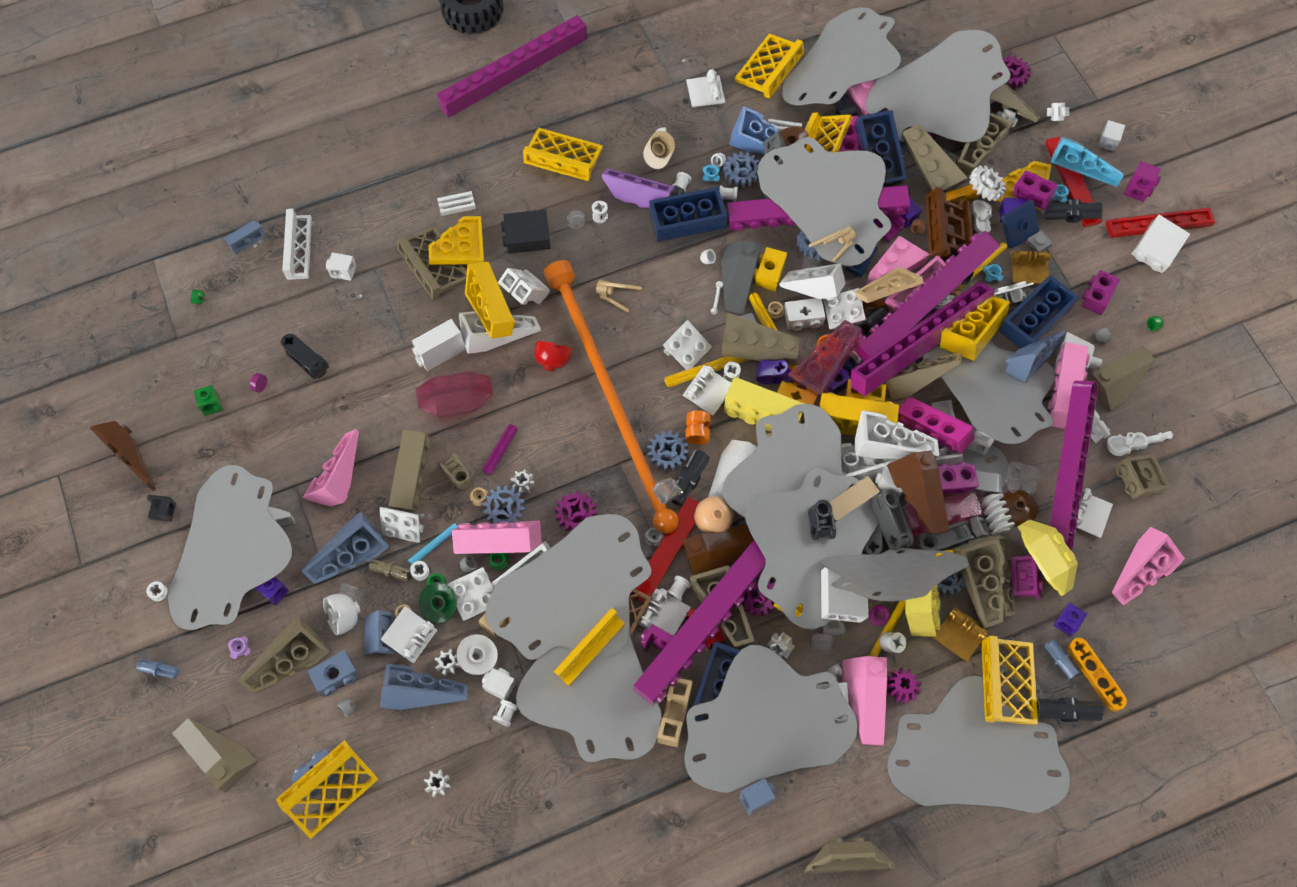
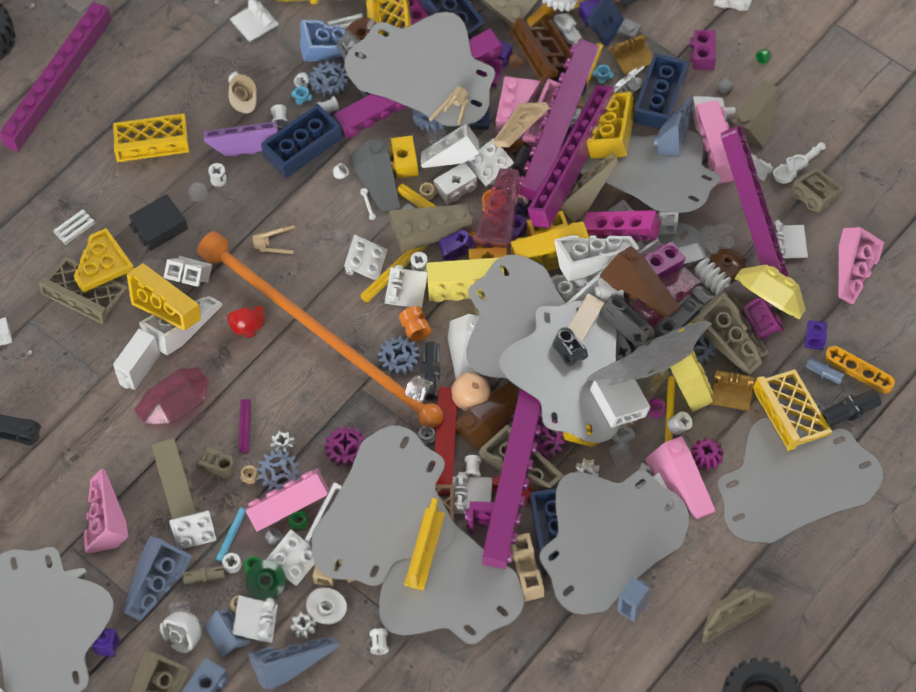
camera: 25 degrees left, 5 degrees down
(498, 683) = (359, 620): white brick -> none

